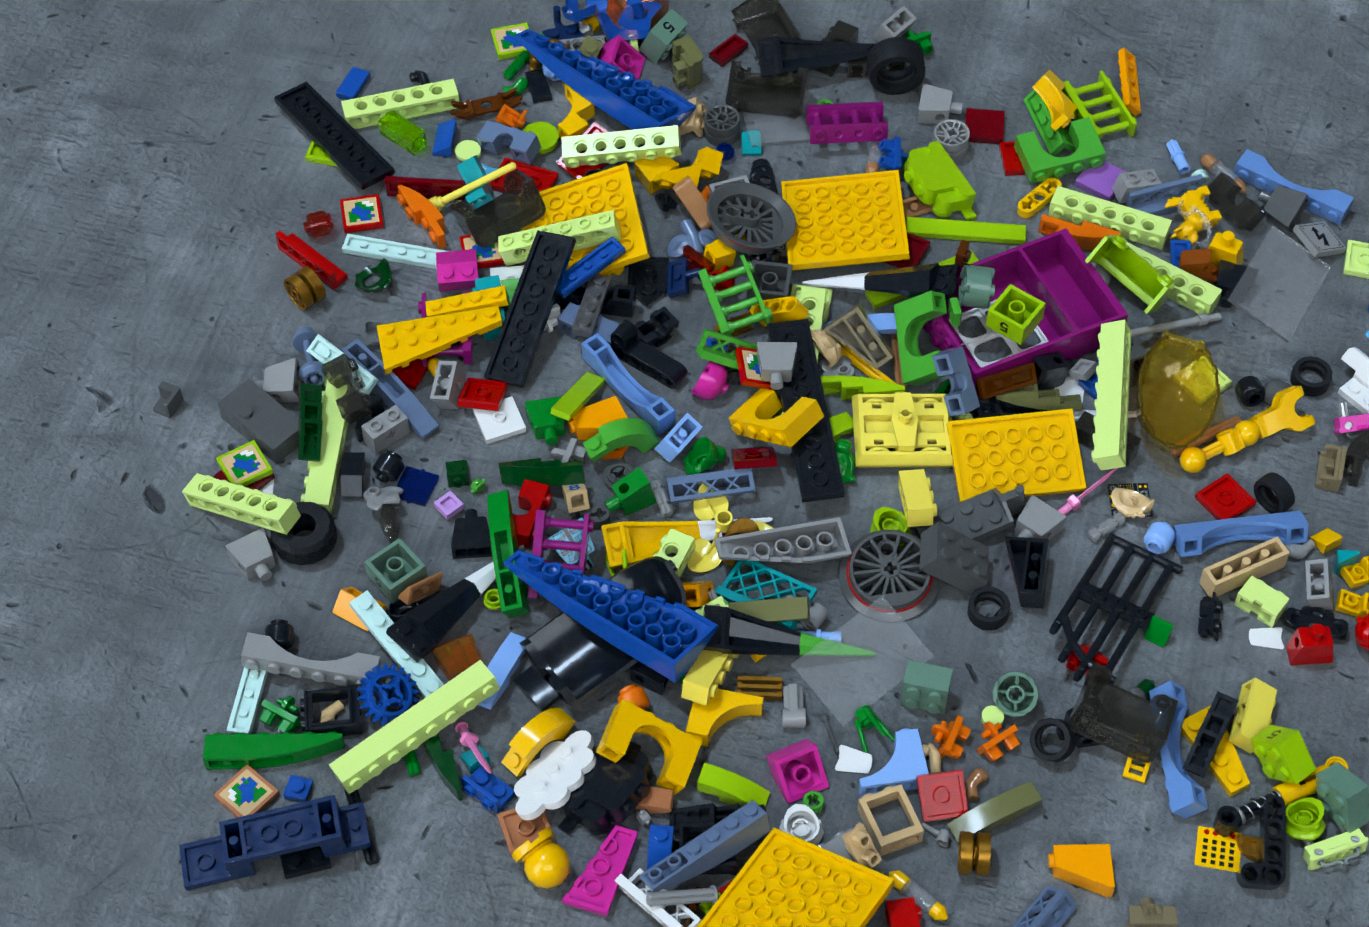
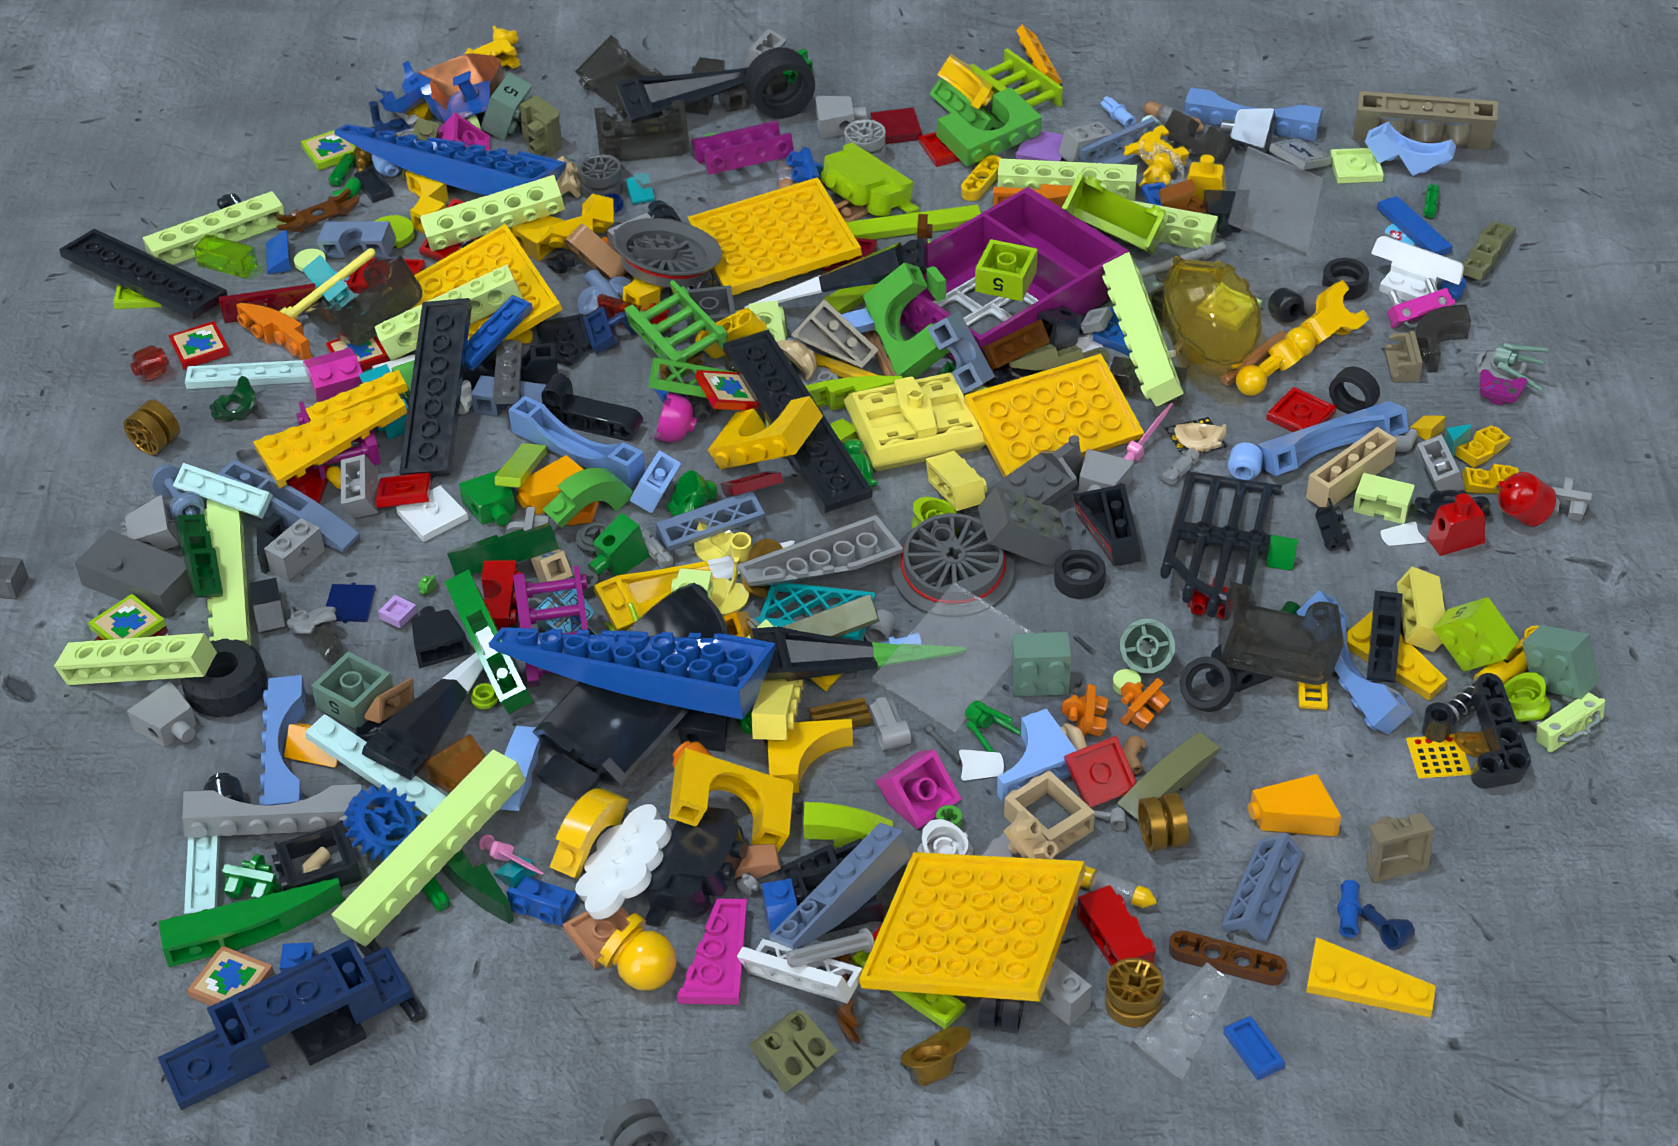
camera: 15 degrees left, 10 degrees down
(307, 256) = (134, 396): red fence -> none
(343, 569) = (285, 706): none -> medium blue arch
(353, 84) = (151, 221): blue tile -> none
(355, 402) = (249, 523): clear smoke arch -> none
(388, 466) = (310, 587): black head -> none
(457, 473) = (398, 578): dark green bracket -> none
(510, 117) = (346, 214): orange bracket -> none
(658, 328) = (594, 379): black cylinder -> none
(728, 50) = (582, 111): dark red tile -> none
(776, 362) = (747, 374): light grey torso -> none
(976, 286) = (952, 252): sand green brick -> none

